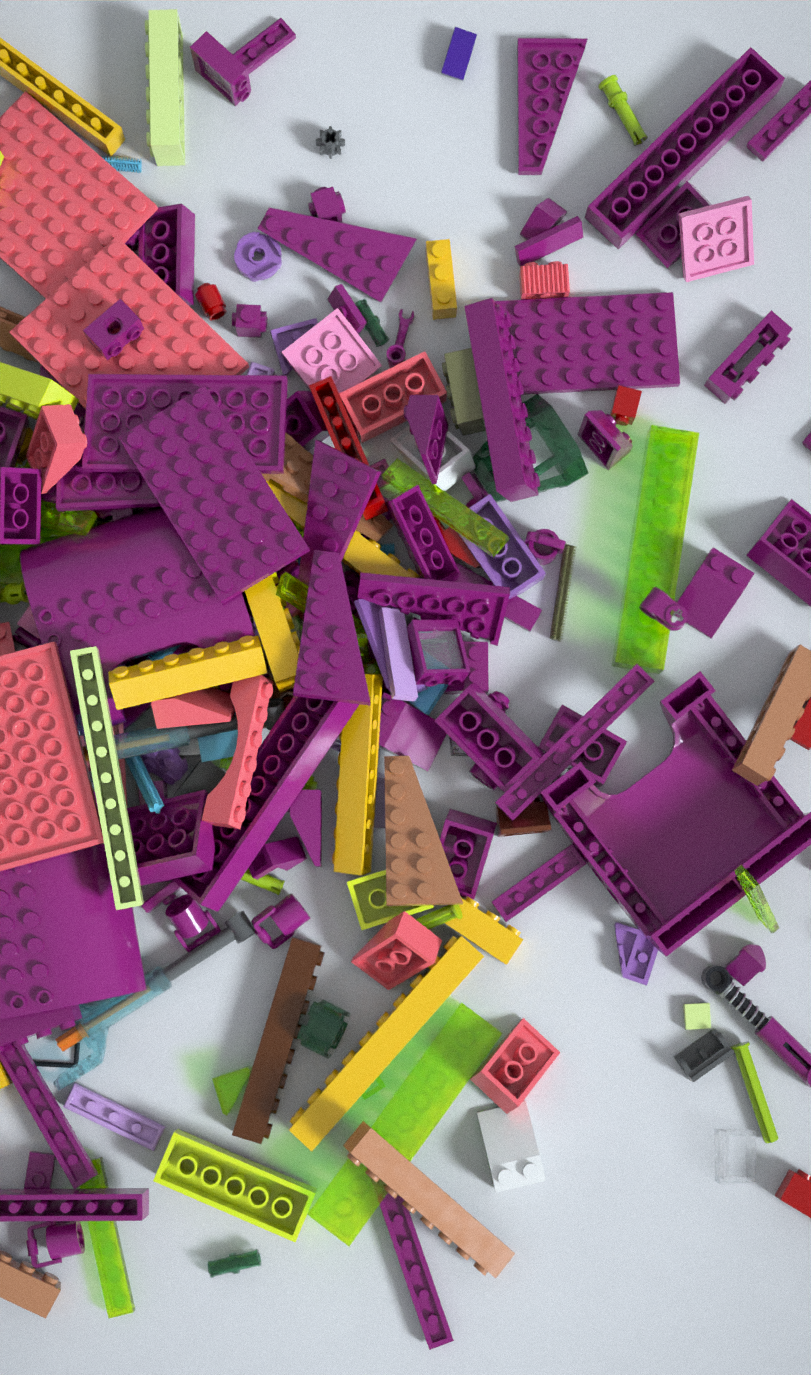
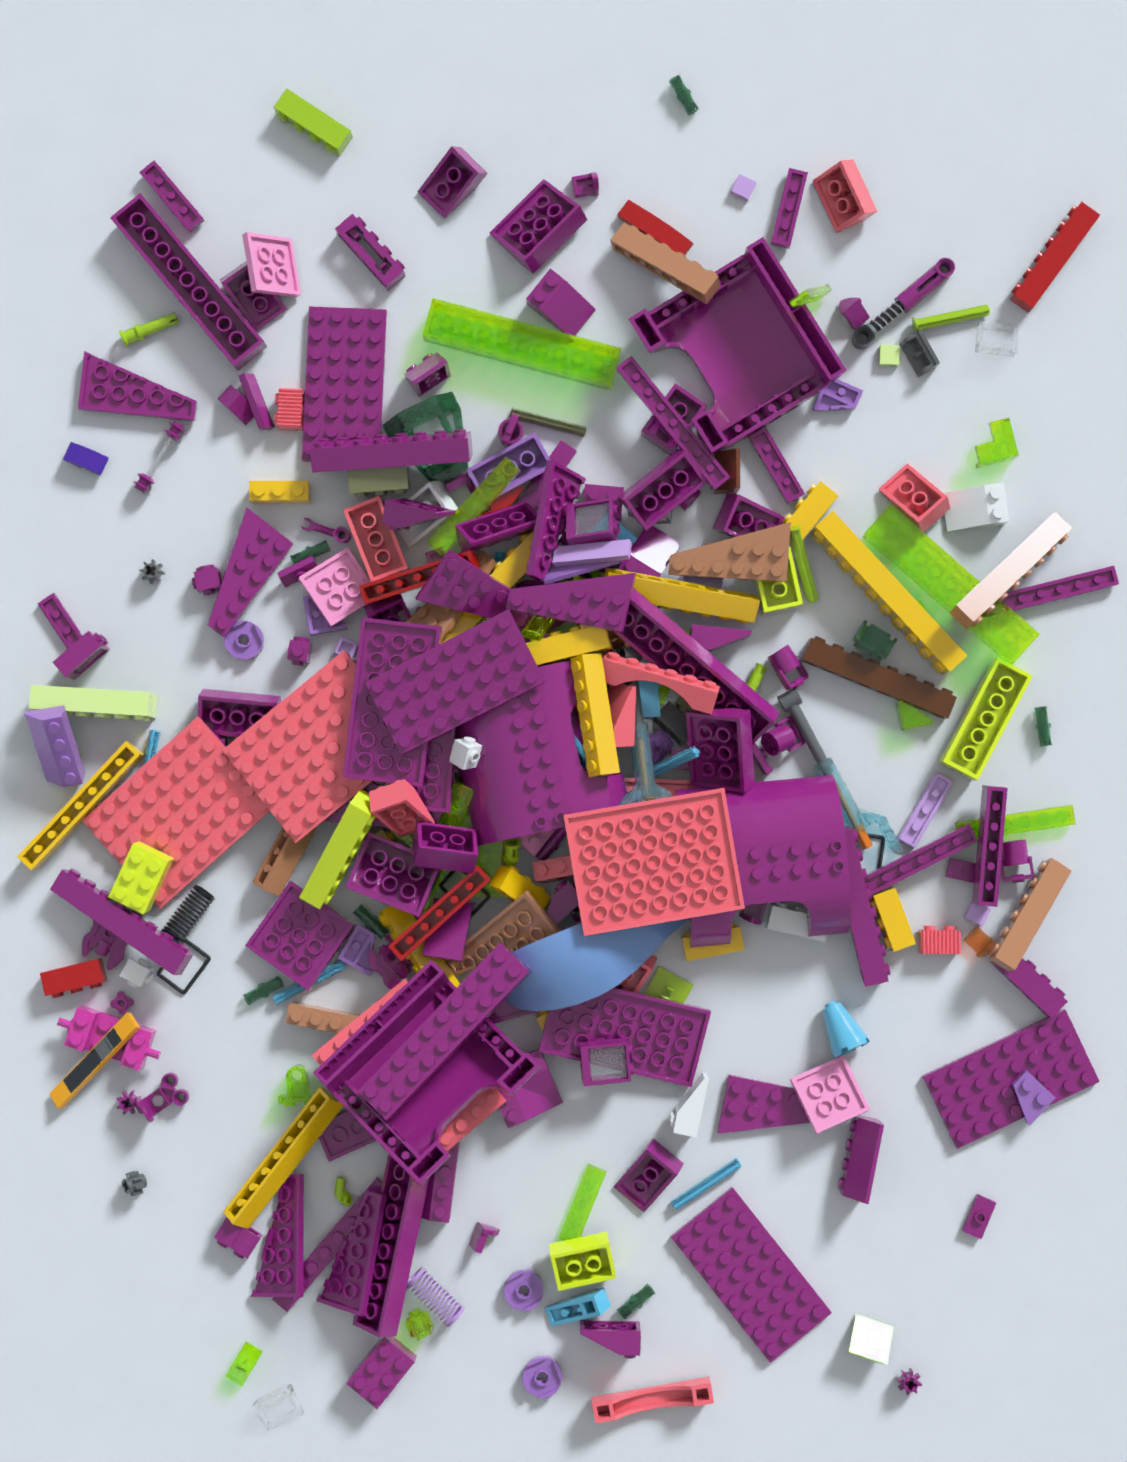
camera: 80 degrees left, 5 degrees up
(107, 778) = (673, 782): yellowish green brick -> none
(109, 50) = (56, 746): none -> medium lavender slope
(116, 317) = (296, 749): magenta brick -> none
(128, 518) = (465, 753): none -> white brick
(211, 301) = (279, 681): red brick -> none
(277, 854) = (737, 662): magenta slope -> none
(398, 951) = (821, 577): coral slope -> none
(440, 123) = (144, 479): none -> magenta axle
(500, 700) = (630, 480): magenta plate -> none
(594, 1175) = (1003, 445): none -> clear neon green panel
(625, 405) = (400, 355): red brick -> none
(662, 608) = (572, 343): magenta piece -> none

